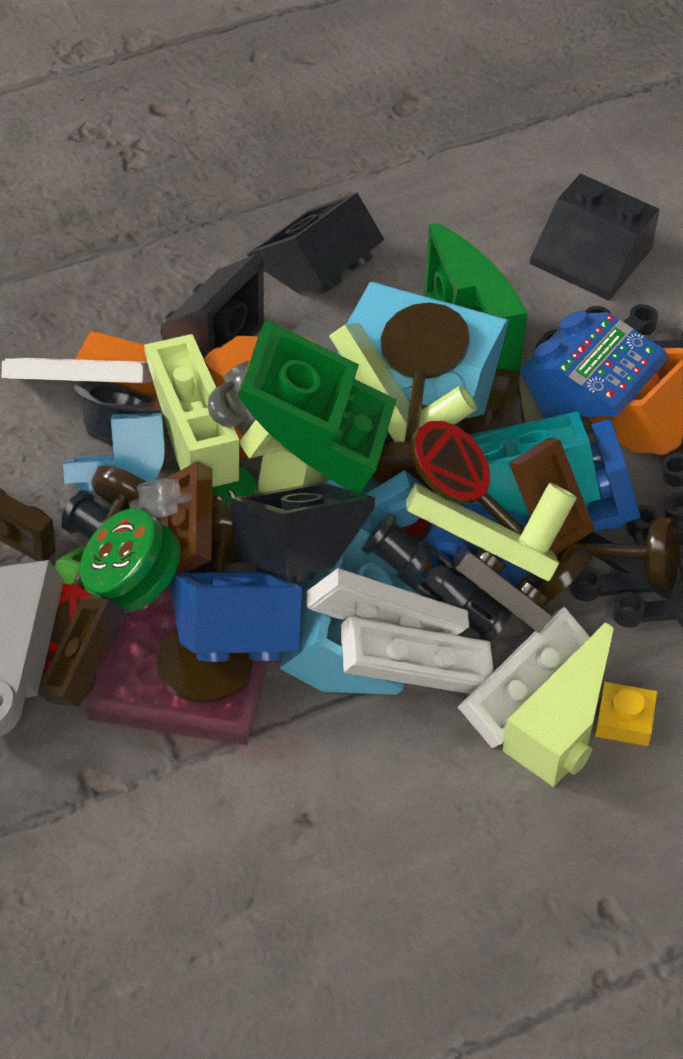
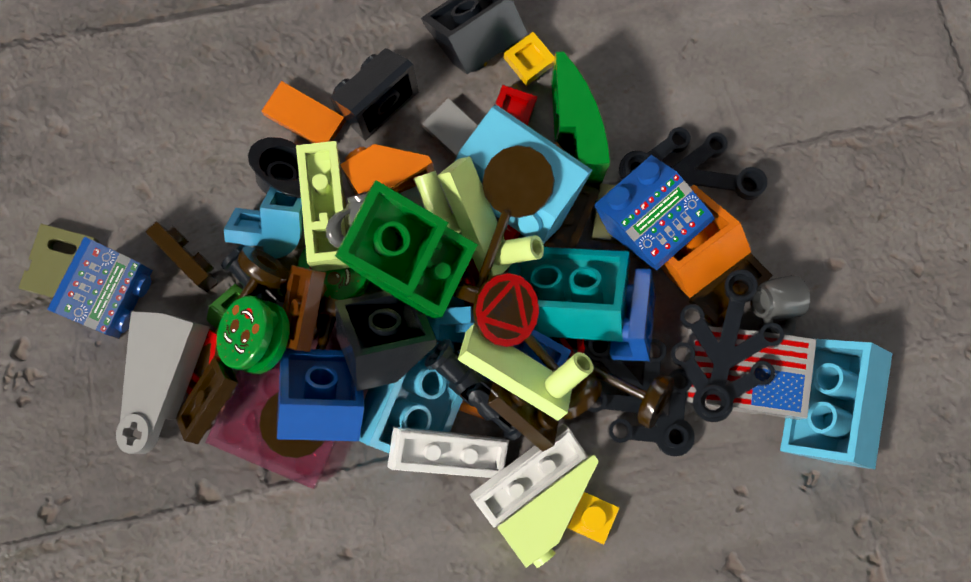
camera: 15 degrees right, 30 degrees up
(76, 370) = (258, 125): white tile -> none
(160, 497) = (279, 296): clear plate -> none
(356, 596) = (429, 422): white tile -> none
(393, 266) = (529, 58): none -> yellow plate
(546, 465) = (580, 333): reddish brown plate -> none
(595, 236) = (699, 58): black slope -> none

